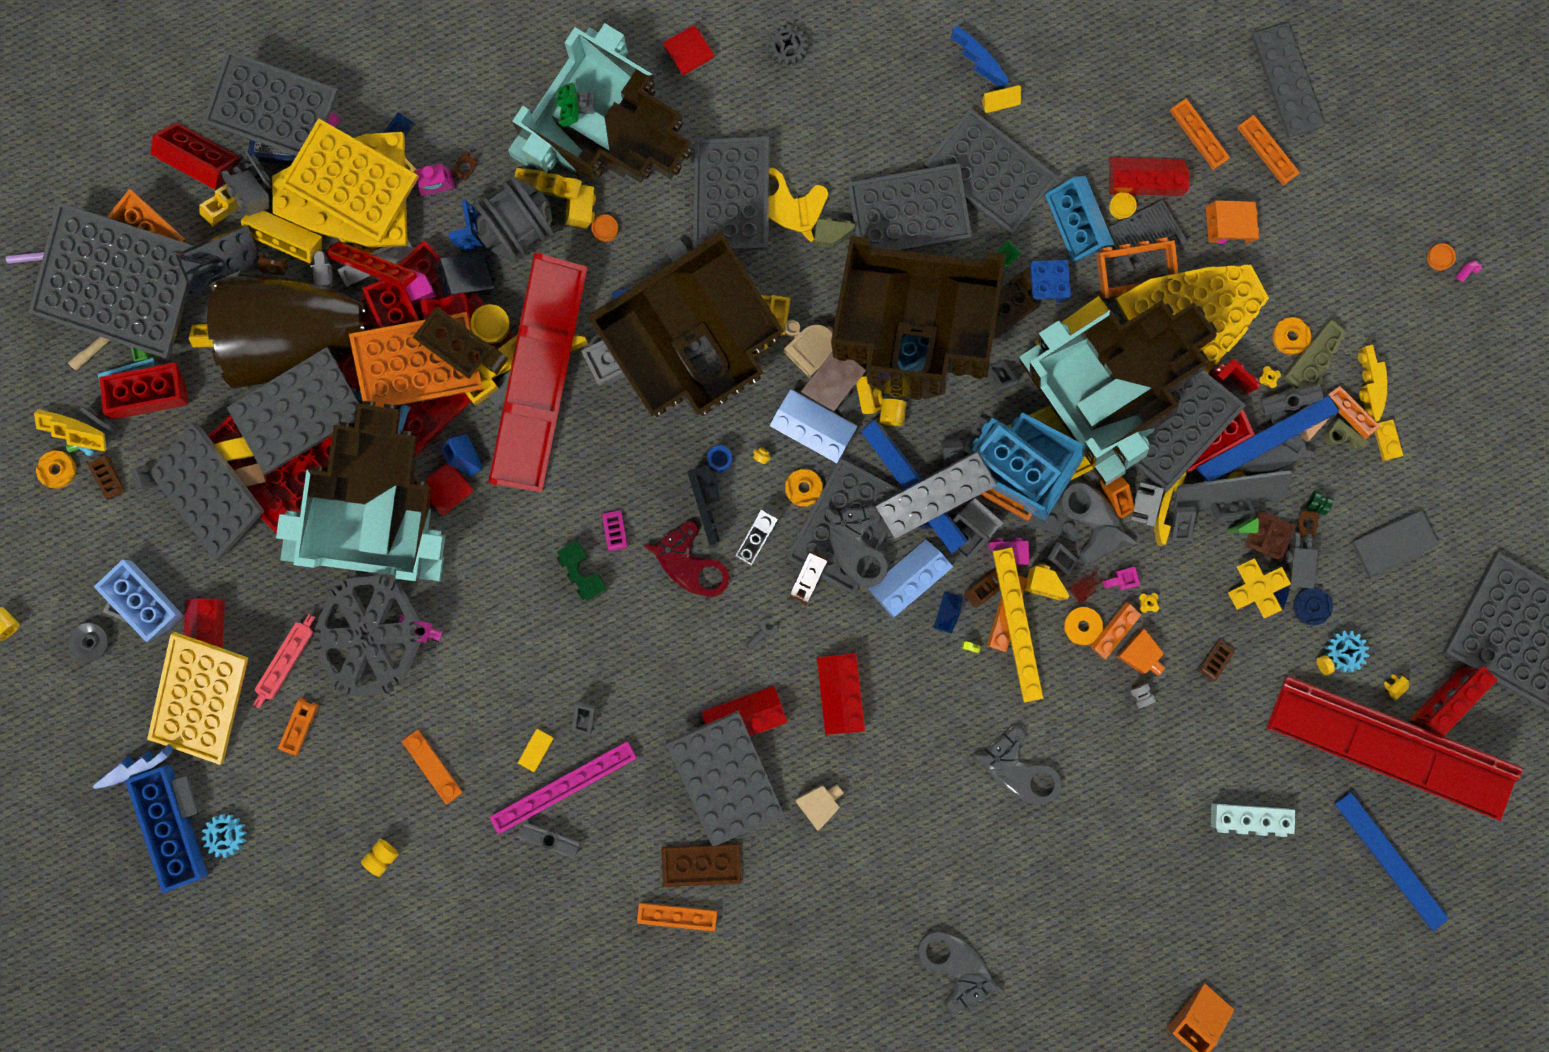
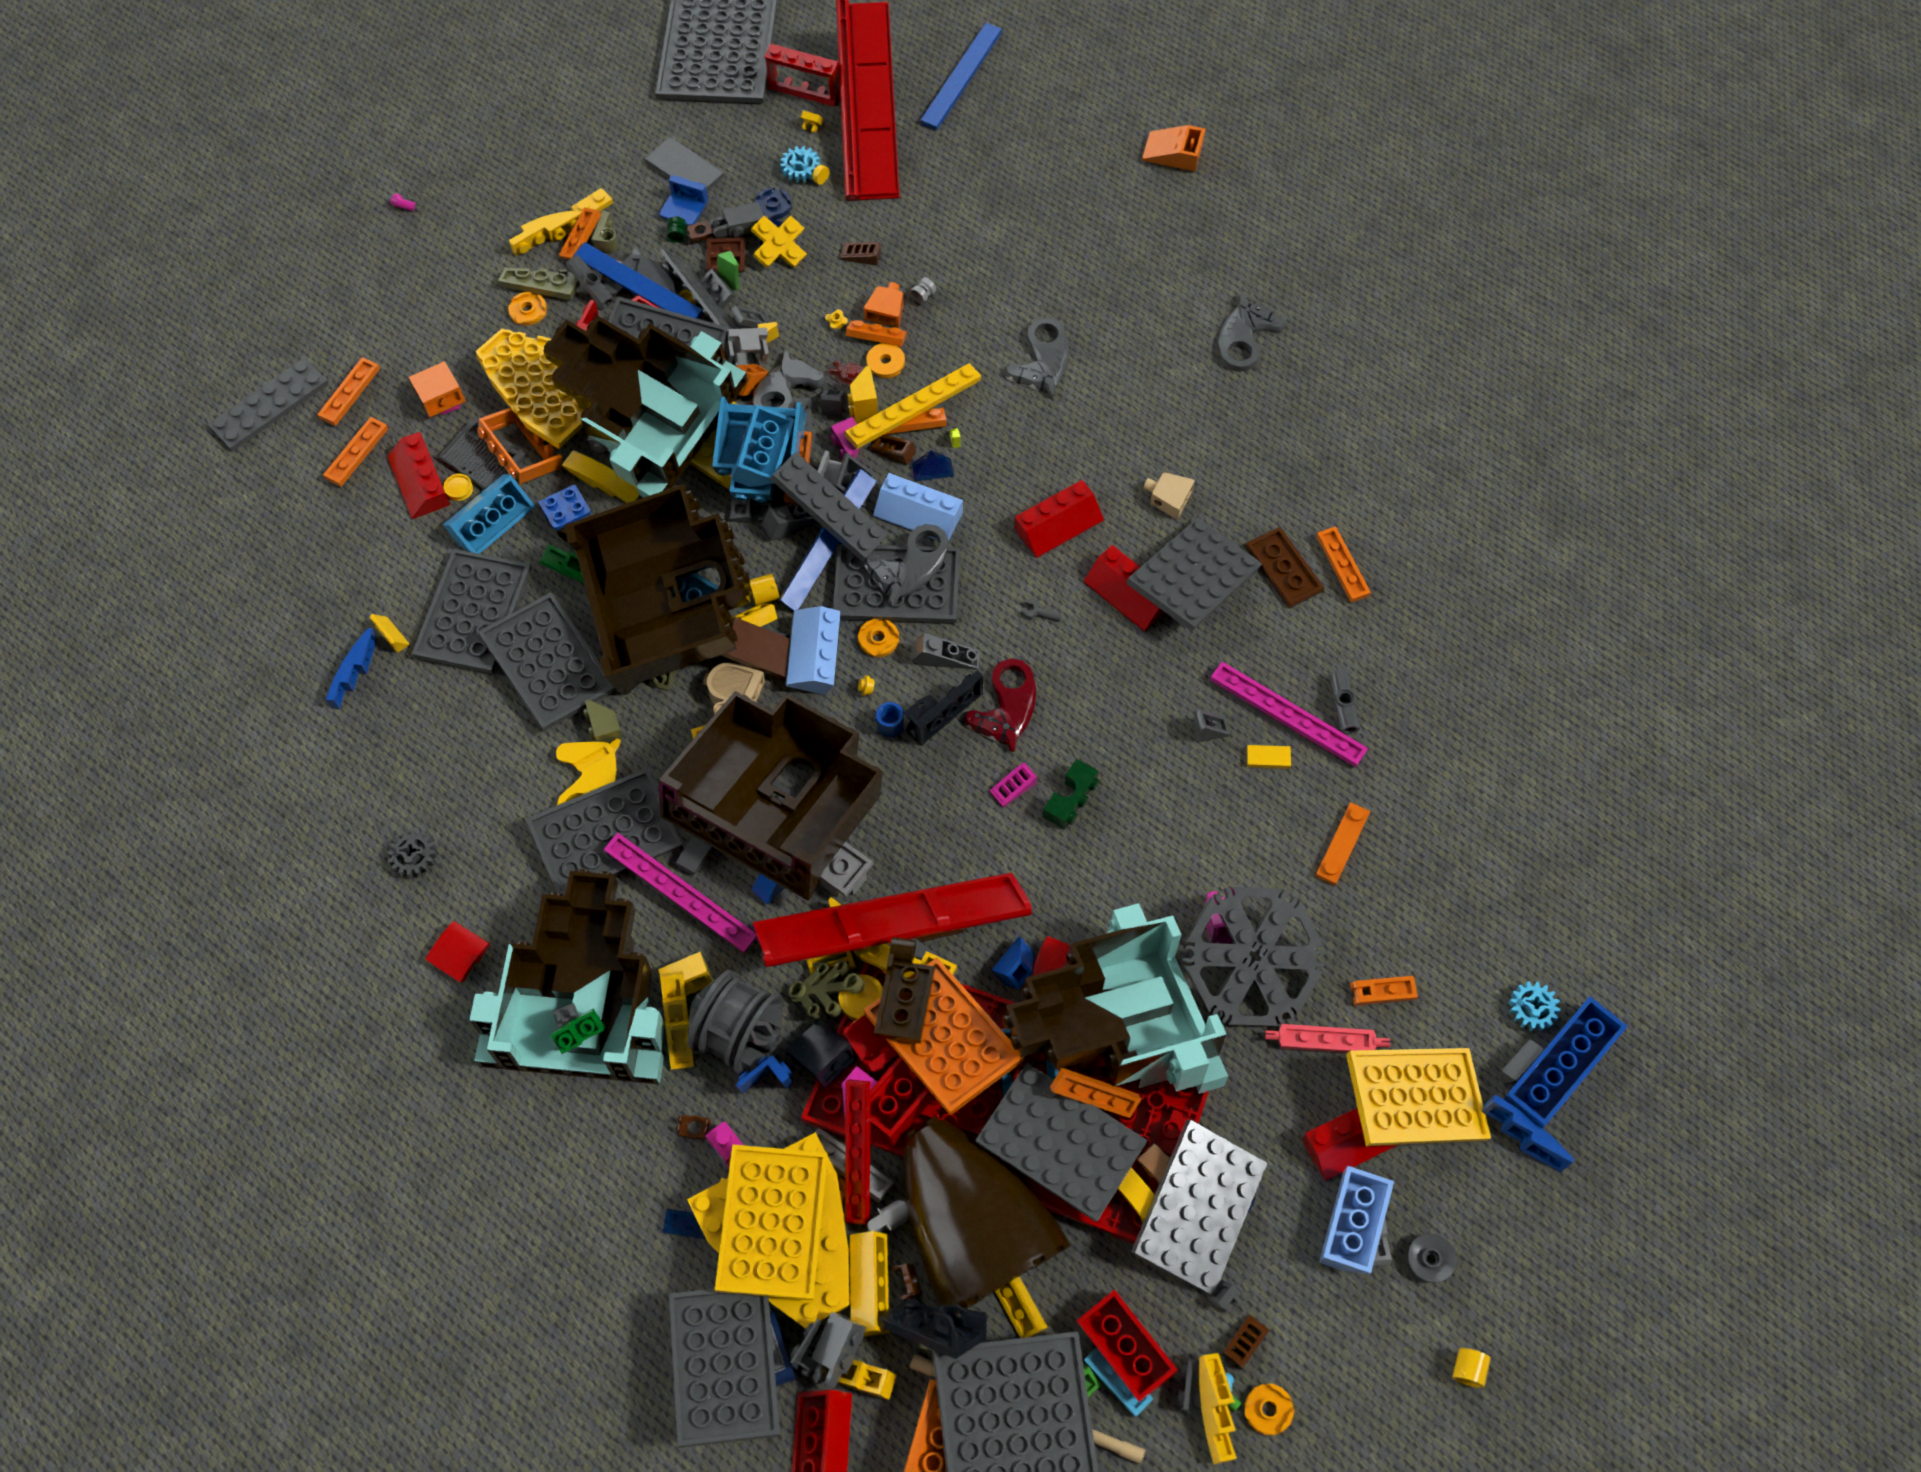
camera: 110 degrees left, 20 degrees down
(317, 449) = (1095, 1092): none -> orange plate
(377, 861) = (1458, 844): yellow wheel -> none
(512, 299) = (801, 990): none -> olive plant
(604, 228) = (696, 942): orange piece -> none
(650, 230) = (681, 893): none -> dark pink plate
(808, 577) = (965, 589): plate -> none
(1125, 579) = (825, 343): dark pink plate -> none
(1252, 818) = (984, 175): light aqua brick -> none
(1272, 383) = (575, 313): yellow plate -> none
(1348, 523) = (685, 200): none -> blue bracket
(1441, 256) = (397, 227): orange piece -> none

